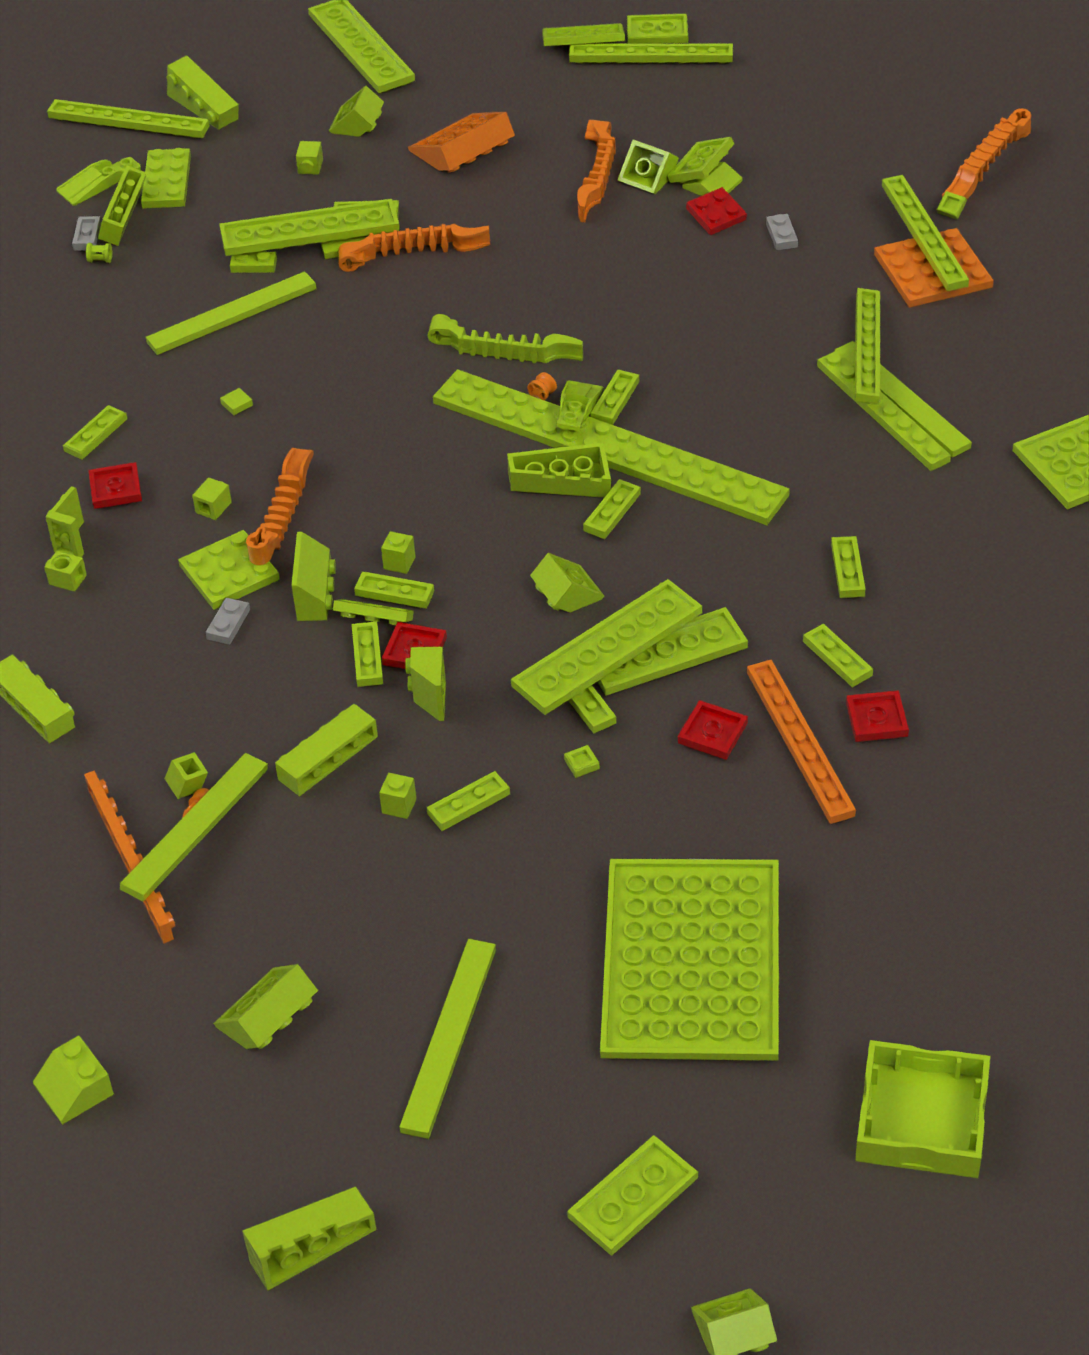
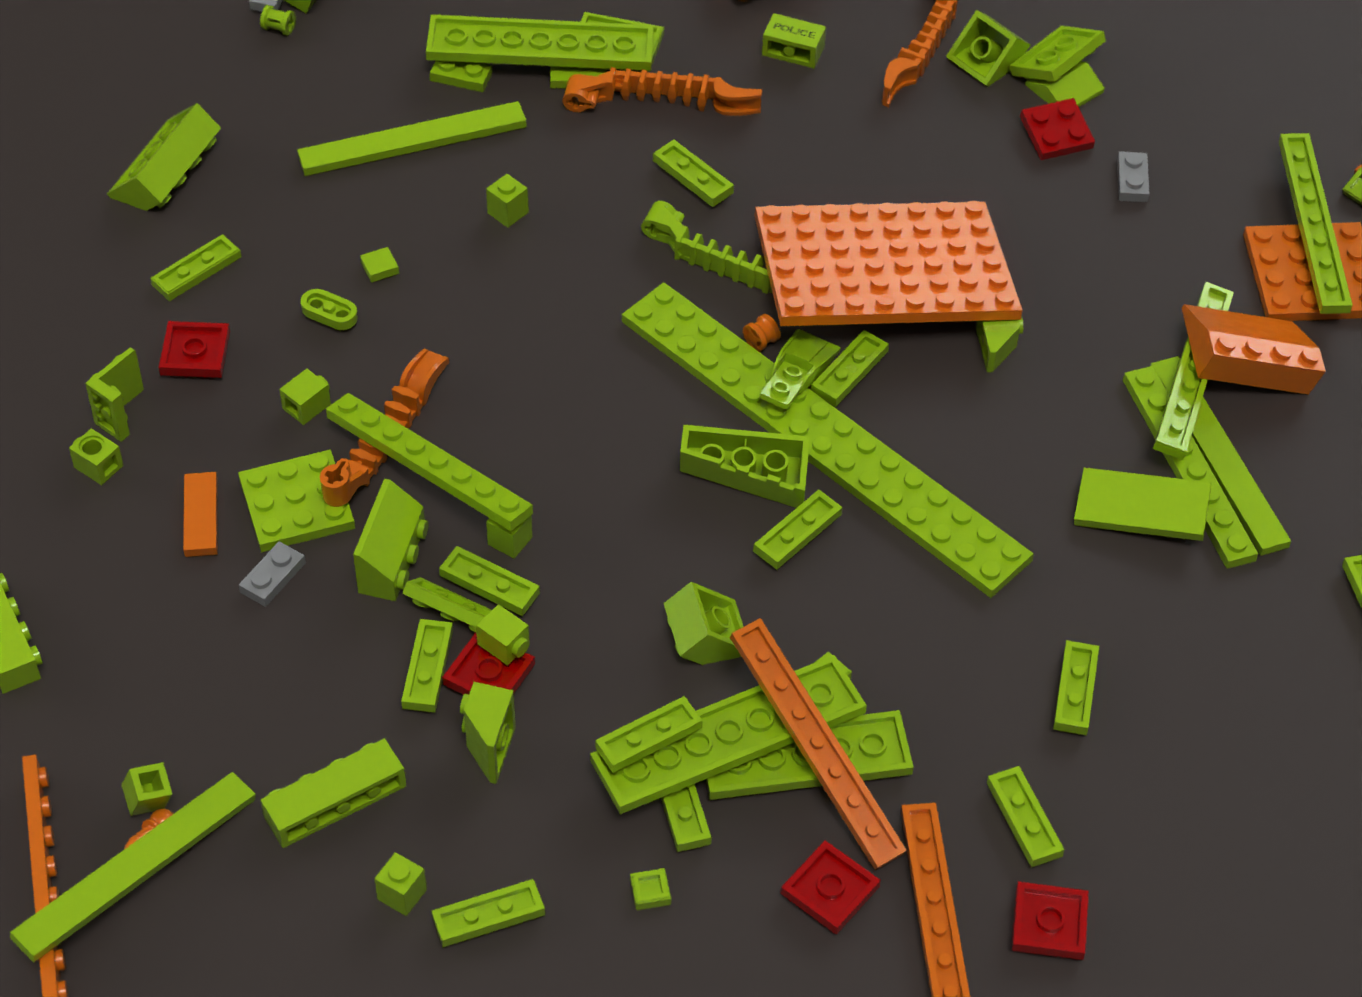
camera: 10 degrees right, 5 degrees up
(46, 363) = (166, 159): none -> lime slope
(159, 593) = (200, 514): none -> orange tile
(209, 438) = (329, 309): none -> lime plate
(320, 338) = (507, 200): none -> lime brick
(324, 517) = (430, 461): none -> lime plate
(419, 618) = (503, 635): none -> lime brick
(454, 293) = (693, 173): none -> lime plate
(500, 190) = (793, 40): none -> lime brick
(550, 655) = (648, 734): none -> lime plate
(619, 321) = (885, 263): none -> orange plate
(675, 636) = (818, 744): none -> orange plate
(716, 352) = (998, 340): none -> lime slope
(858, 440) = (1143, 504): none -> lime tile
(906, 325) = (1252, 350): none -> orange slope

